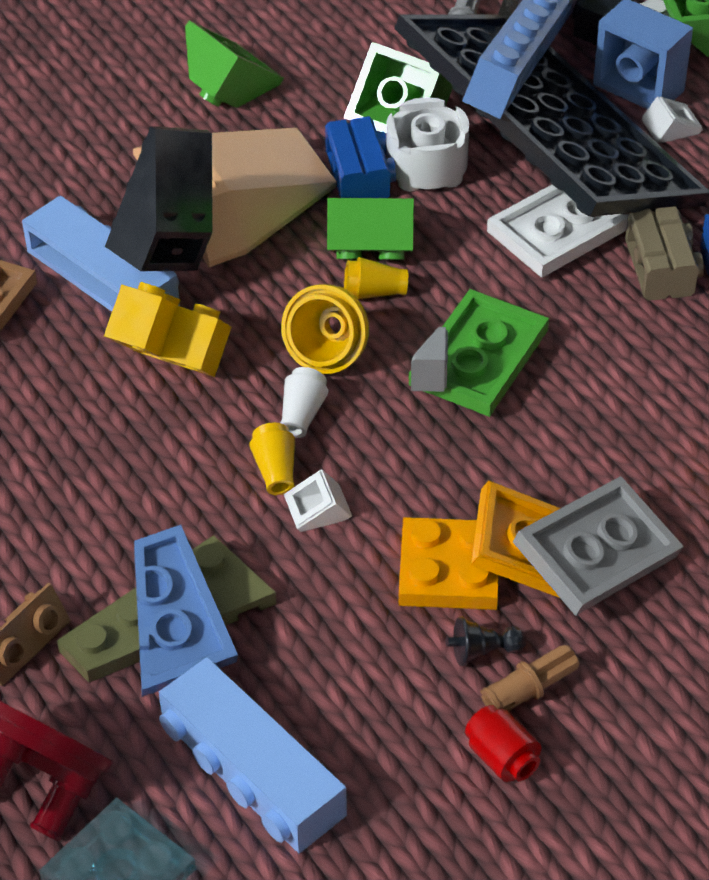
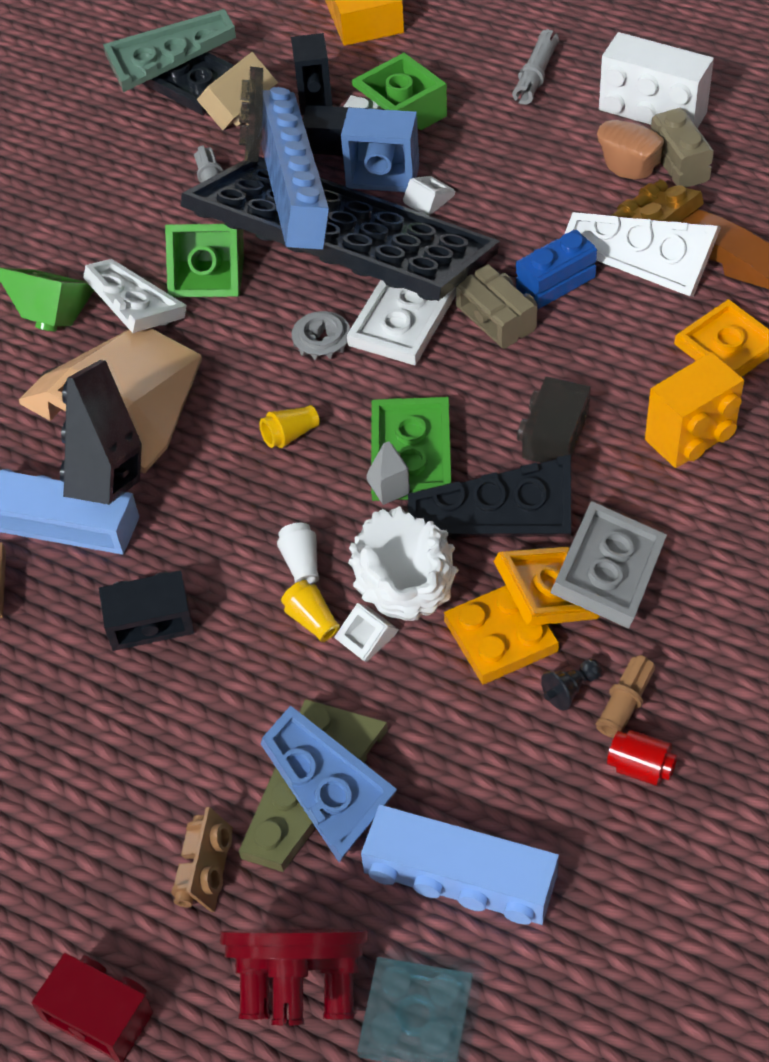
camera: 25 degrees left, 5 degrees up
(122, 388) = (146, 610): none -> black brick
(160, 328) = (159, 544): yellow brick -> none
(303, 98) = (131, 297): none -> white wing
(309, 333) = (284, 501): yellow piece -> none
(358, 158) = (209, 329): blue brick -> none
(370, 226) = (258, 381): bright green slope -> none
(386, 452) = (402, 564): none -> white hair
(428, 144) = (259, 293): white brick -> none
(465, 199) = (312, 326): none -> light grey gear
(536, 444) = (505, 504): none -> black wing
(643, 388) = (554, 420): none -> clear smoke brick

